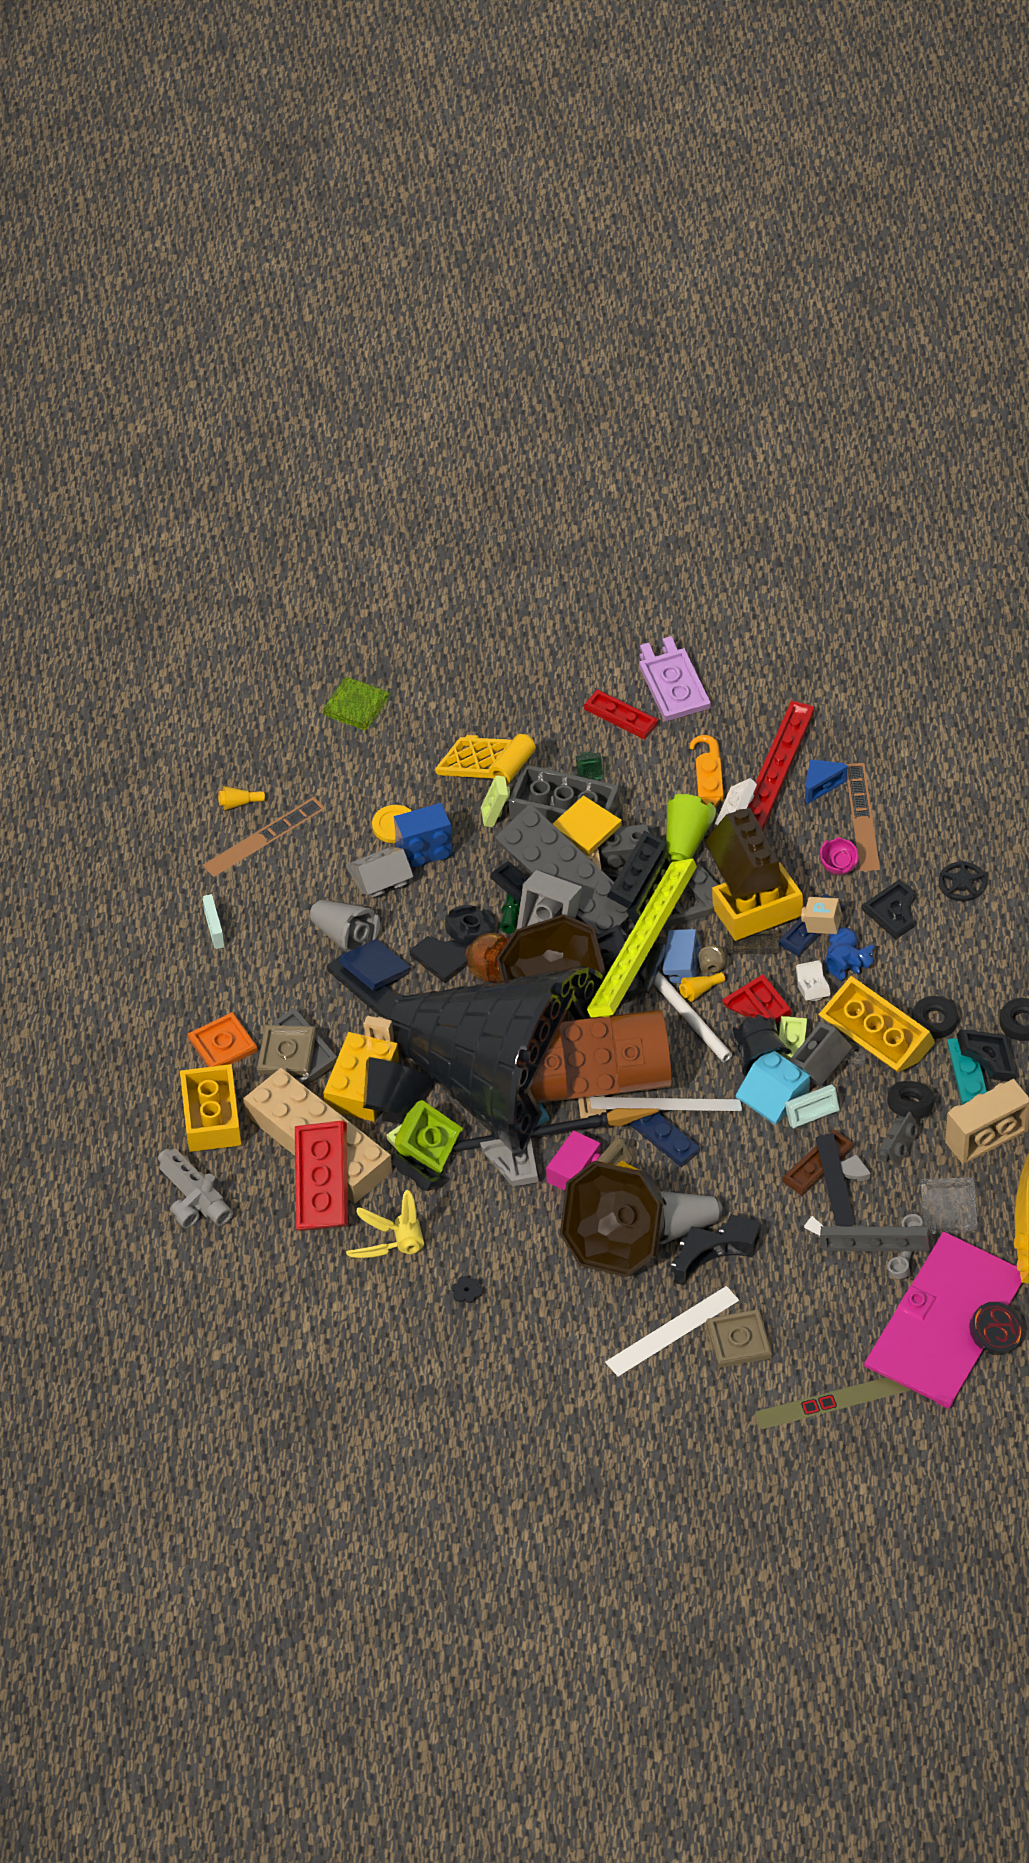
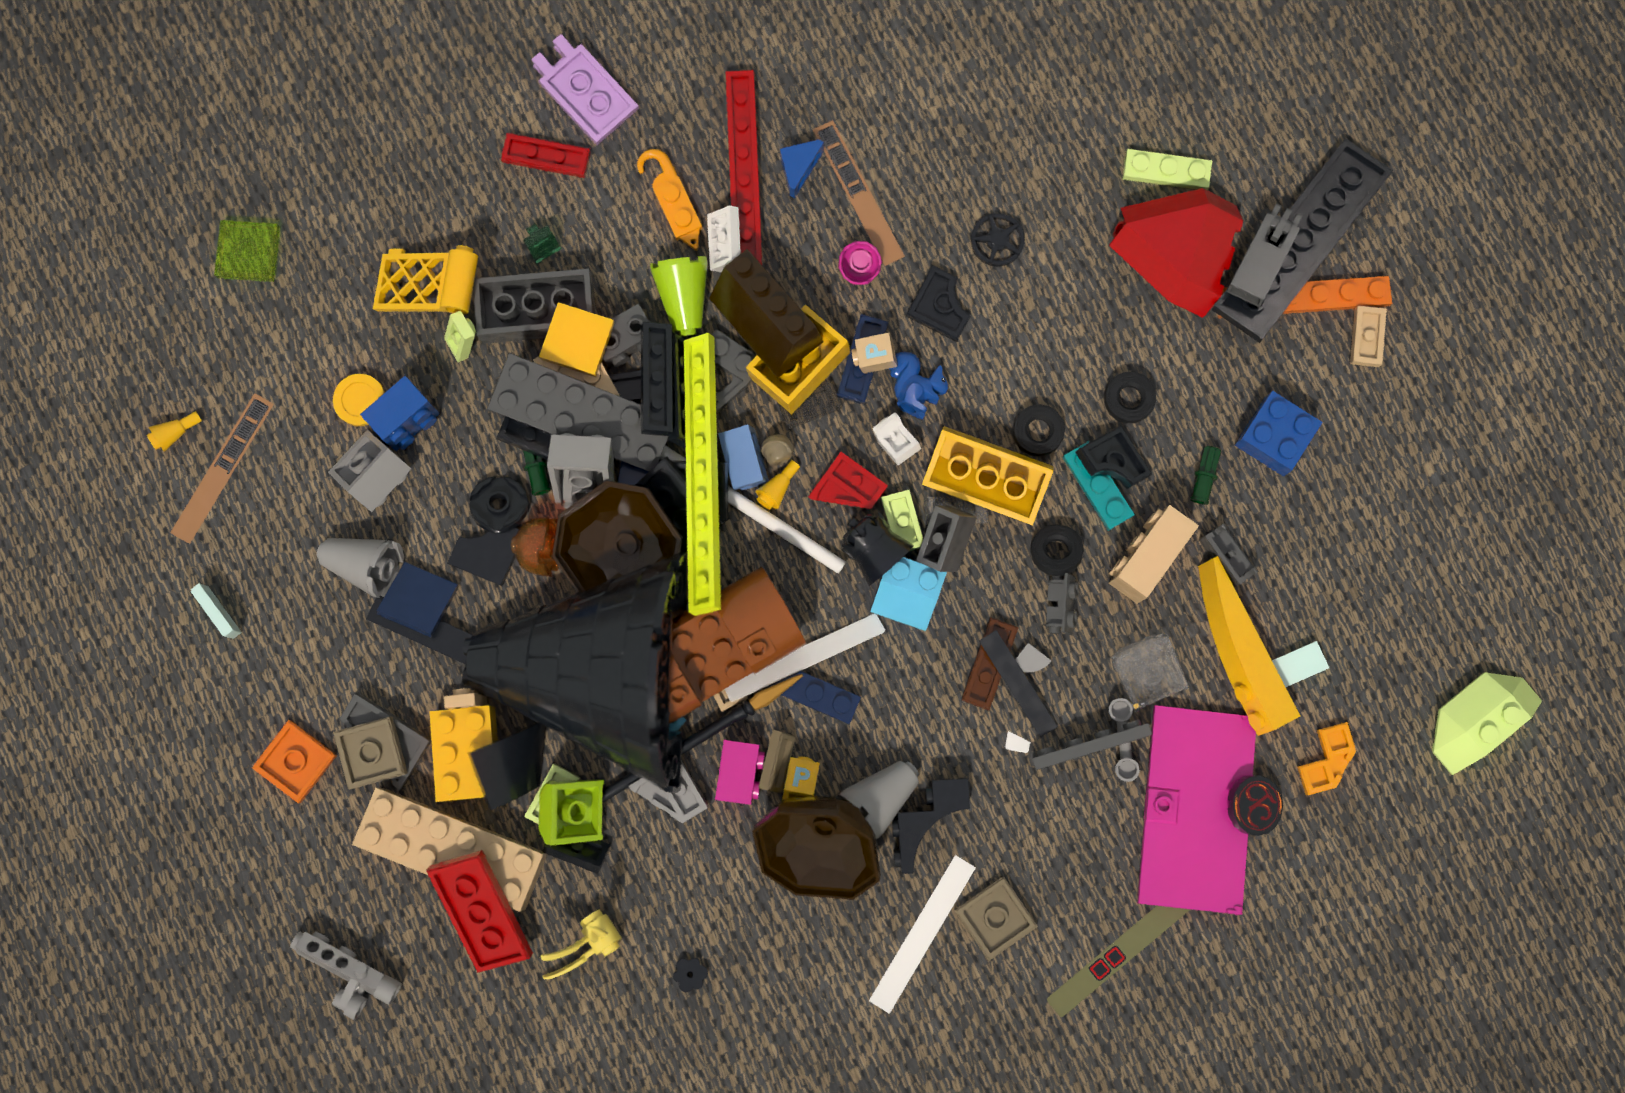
camera: 25 degrees left, 30 degrees up
(210, 1108) = (319, 863): yellow brick -> none
(812, 1106) = (958, 600): light aqua tile -> none

